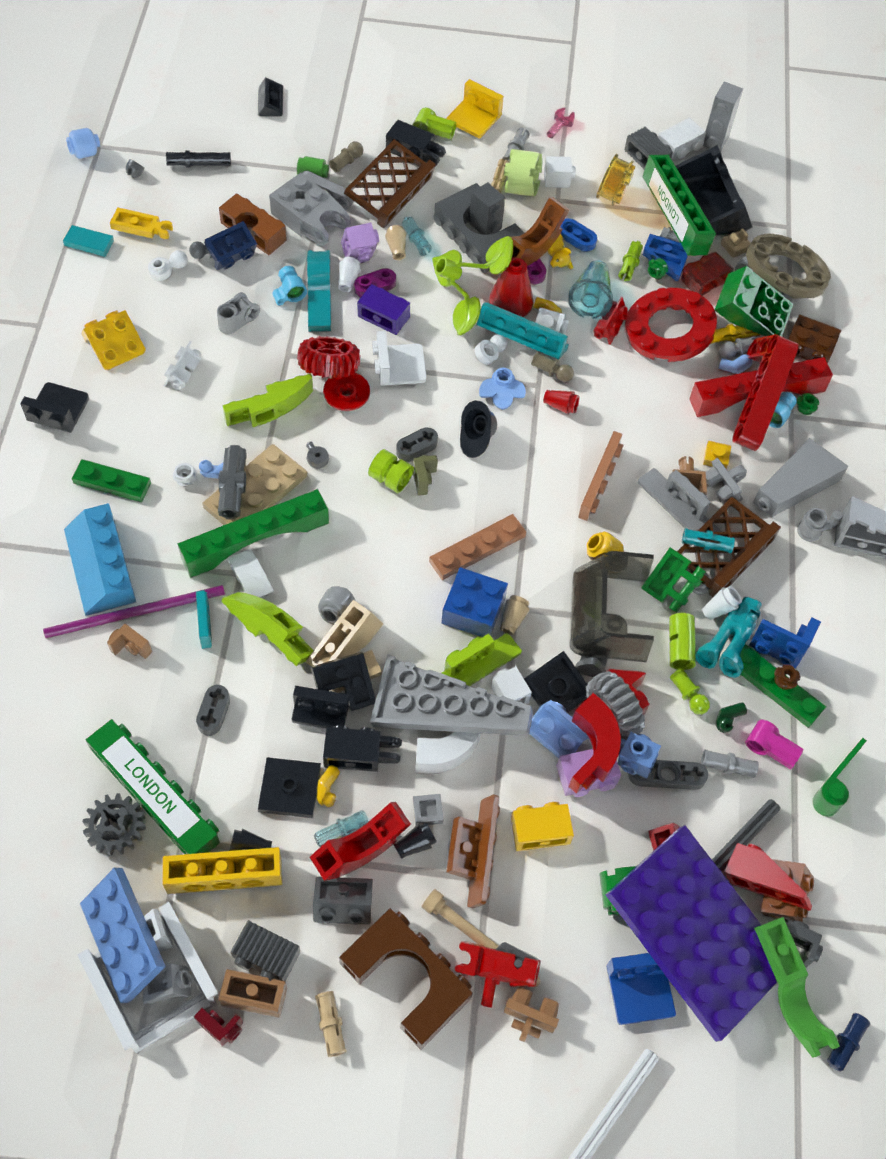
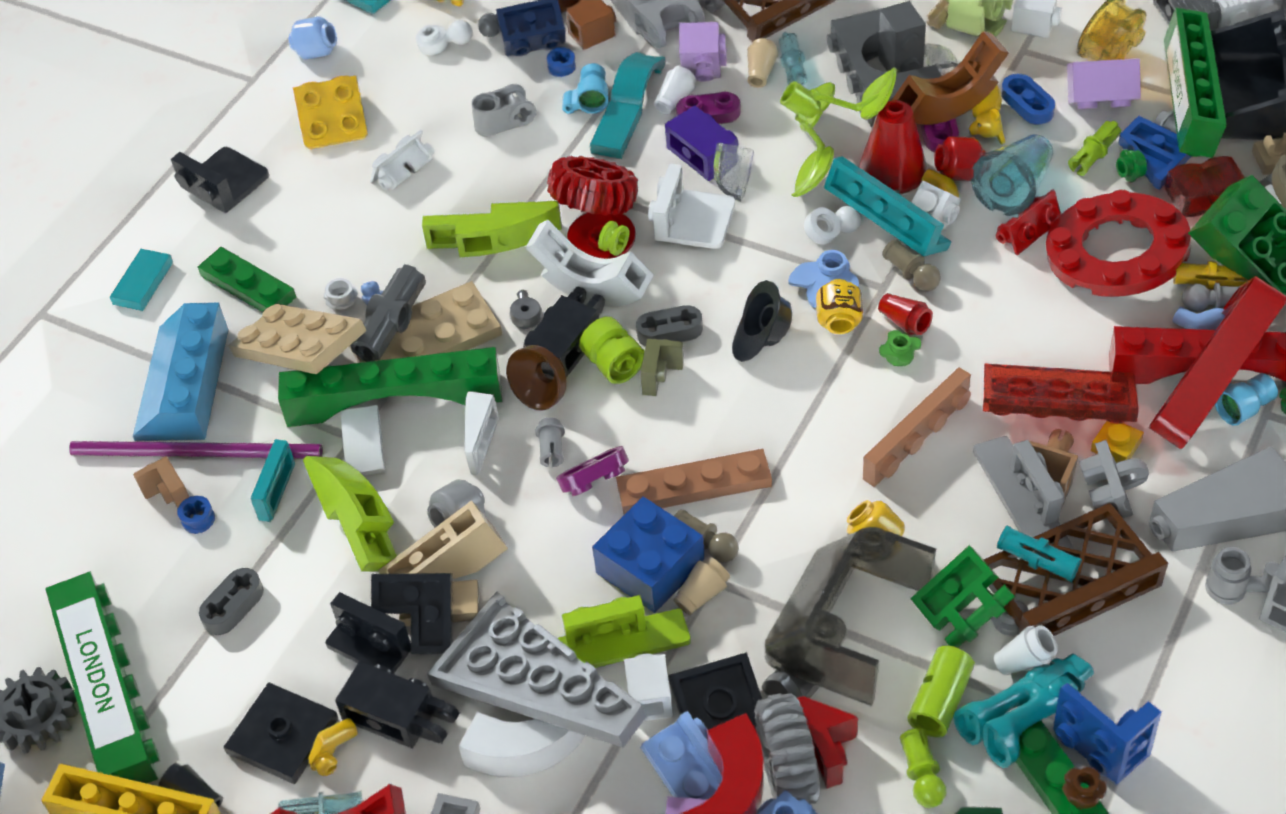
camera: 30 degrees right, 10 degrees down
(32, 497) = (141, 279): none -> teal tile
(73, 285) = (312, 37): none -> light blue head
(164, 661) = (194, 506): none -> blue bush
(176, 515) = (296, 338): none -> tan plate
(259, 273) = (567, 58): none -> blue bush
(323, 540) = (480, 424): none -> white slope
(348, 509) = (529, 381): none -> reddish brown piece
(352, 423) = (566, 267): none -> white arch
(352, 467) = (564, 326): none -> black hinge
(360, 392) = (613, 238): none -> lime bush
(374, 539) = (550, 433): none -> light grey pin
(412, 556) = (607, 464): none -> magenta plate
(414, 325) = (733, 169): none -> clear brick
(515, 216) = (941, 57): none -> clear brick
(516, 584) = (721, 546): none -> dark tan pin
(521, 406) = (839, 306): none -> yellow head
(553, 286) = (957, 157): none -> red head
(567, 430) = (899, 348): none -> bright green plate
(621, 214) = (1104, 81): none -> lavender brick
(675, 432) = (1060, 393): none -> clear red plate

